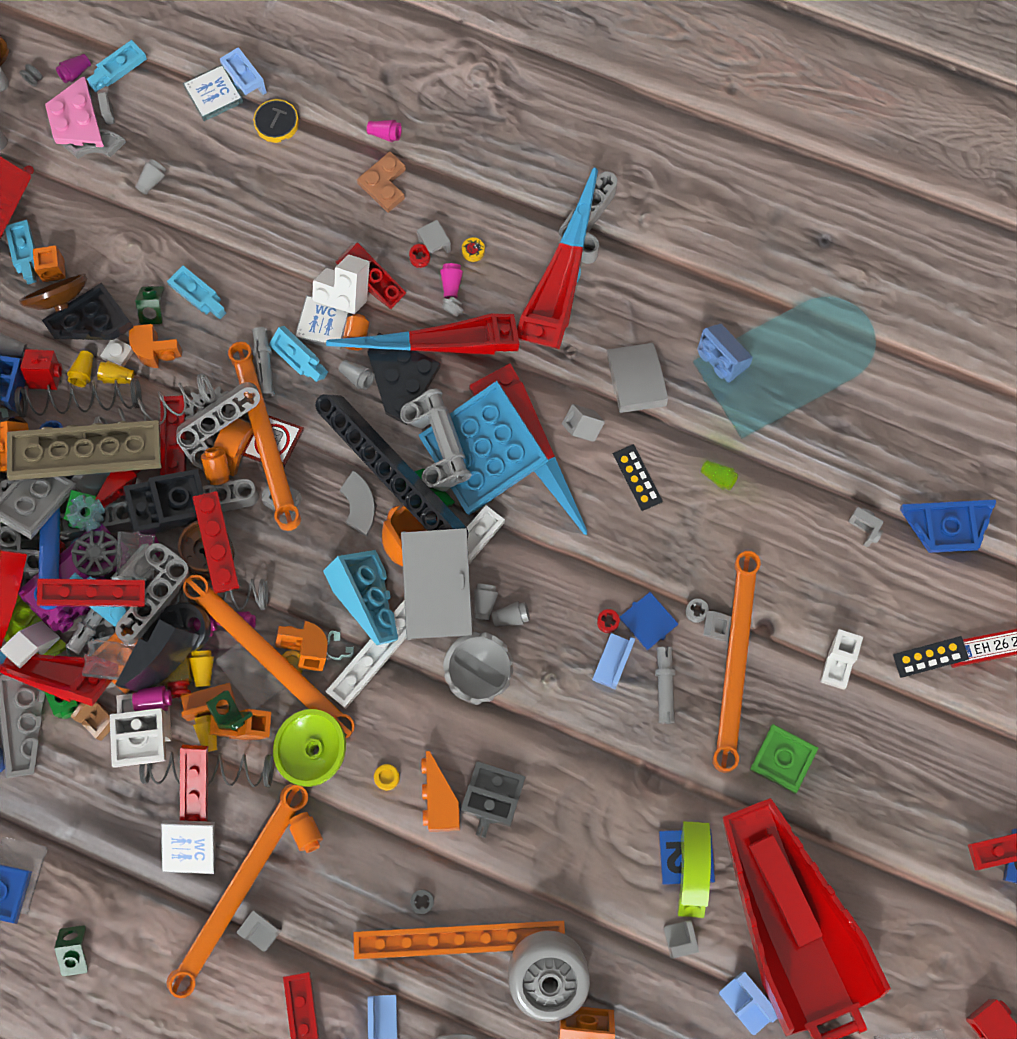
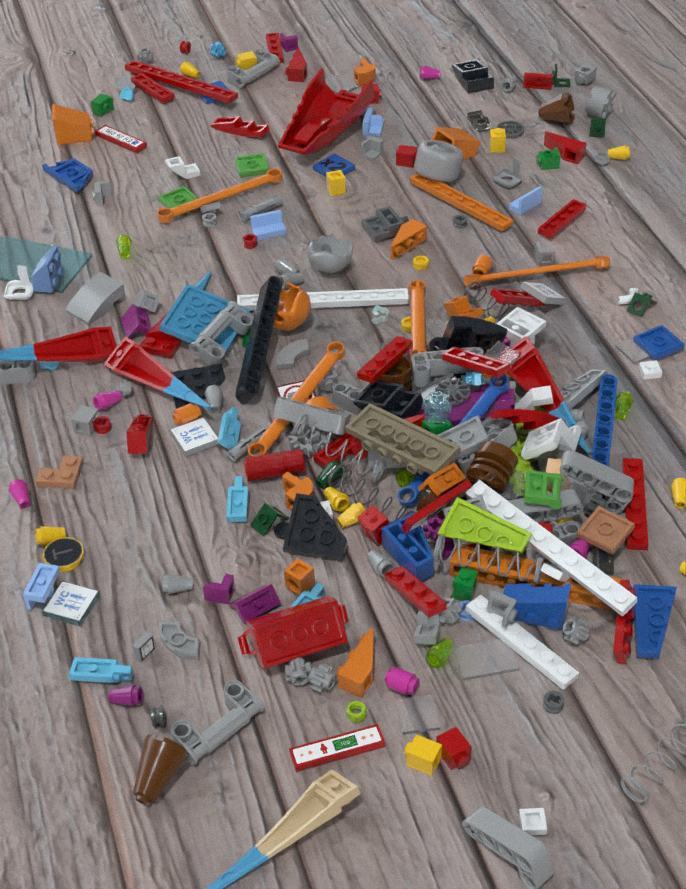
camera: 130 degrees left, 30 degrees down
(55, 295) = (305, 544): reddish brown dish -> none
(71, 220) = (255, 602): none -> magenta panel
(74, 116) = (169, 660): bright pink wing -> none
(94, 948) = (627, 299): none -> white arm
(109, 203) = (220, 592): none -> magenta panel
(128, 306) = (280, 530): none -> black piece
(149, 392) = (322, 479): none -> dark green cone
(207, 350) = (270, 466): none -> red piece
(215, 466) = (341, 400): orange brick -> none
(233, 718) = (464, 301): dark green bracket -> none
(296, 744) = (442, 281): lime dish -> none
(307, 120) = (45, 534): none -> yellow cone
(309, 641) = (394, 315): orange brick -> none
(345, 286) = (163, 426): white brick -> none
(361, 588) = (342, 315): medium azure wedge -> none
(433, 583) = (305, 271): light grey container -> none
(473, 249) = (72, 406): tile -> none
(555, 391) = (135, 320): none -> magenta panel
(619, 967) = (406, 156): none -> red brick
(635, 815) = (336, 182): none -> yellow panel
(637, 477) = (156, 275): black sticker -> none
(648, 621) = (233, 232): blue piece -> none
(695, 869) = (334, 148): lime arch -> none
(732, 304) = (23, 283): none -> white piece
(777, 610) = (176, 197): none -> bright green tile
(895, 816) = (236, 126): none -> red slope
(930, 656) = (149, 151): black sticker -> none

